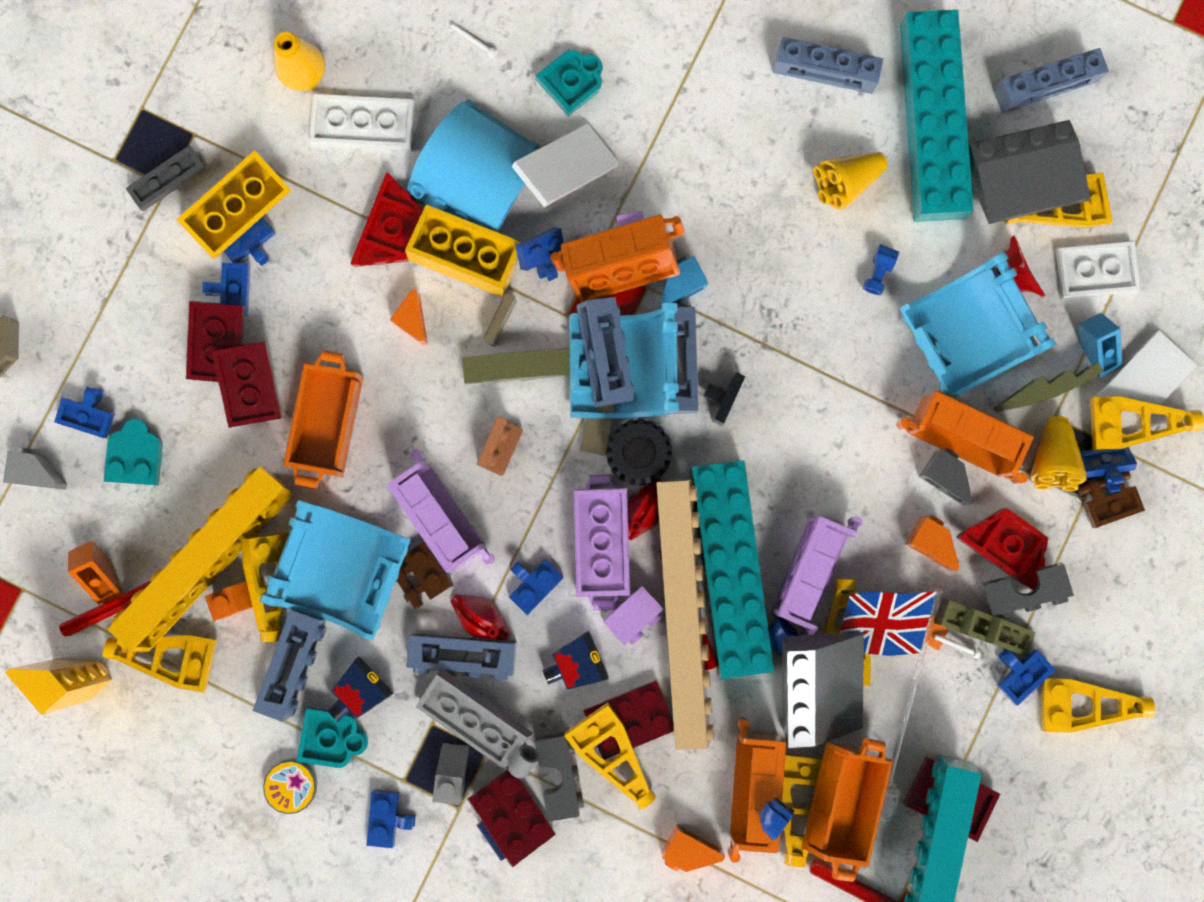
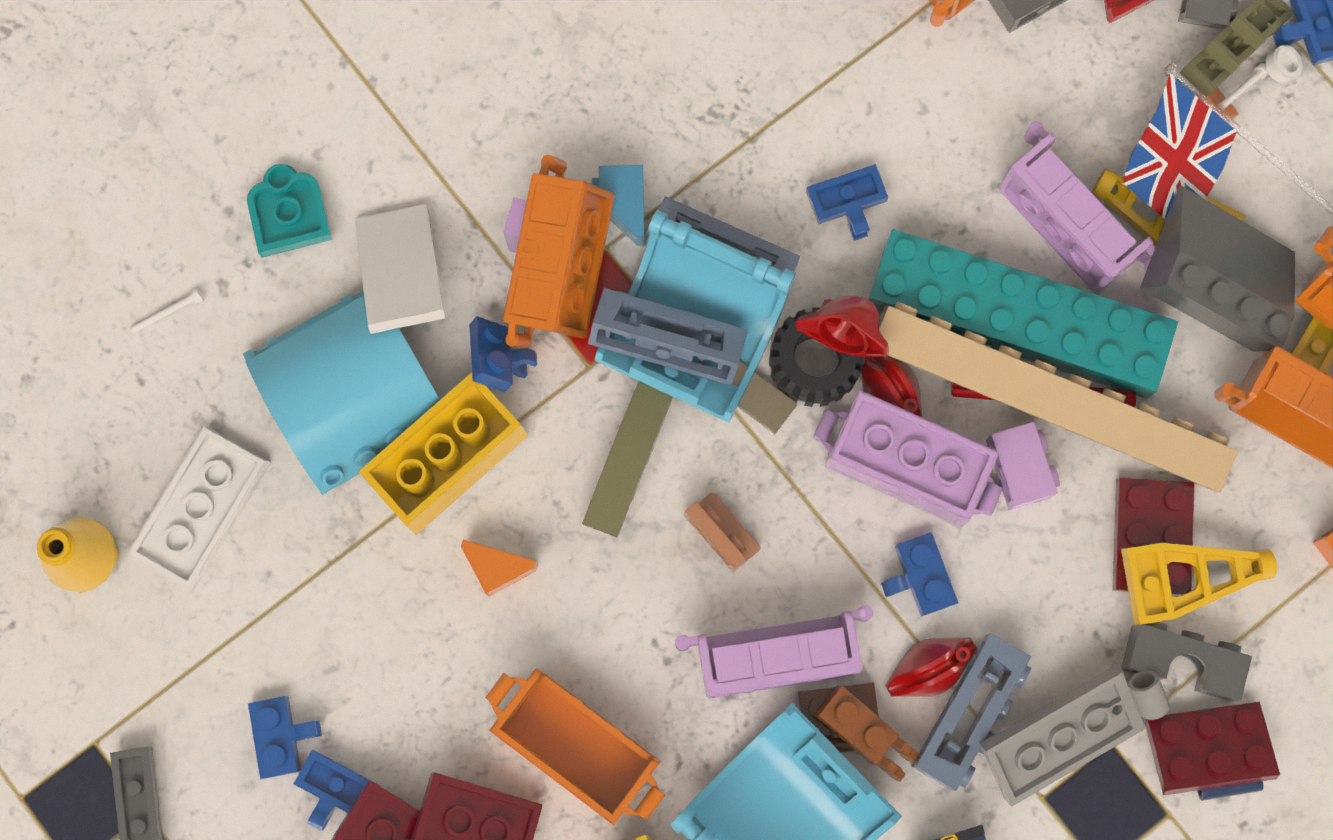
camera: 65 degrees left, 5 degrees down
(234, 205) = (226, 727): yellow slope -> none
(387, 227) = (359, 537): red wing -> none
(416, 592) = (864, 731): none -> dark orange hinge
(451, 774) = (1121, 800): light grey slope -> none
(500, 319) = (555, 452): dark tan tile -> none
(577, 663) = (1051, 566): torso -> none
(663, 459) = (846, 326): none -> red hat
(724, 397) = (797, 216): black tile -> none
(754, 423) = (848, 197): none -> blue plate
(777, 630) = (1128, 291): blue piece -> none
(934, 542) = (1102, 52): orange slope -> none
(986, 665) = (1284, 64): none -> white tile

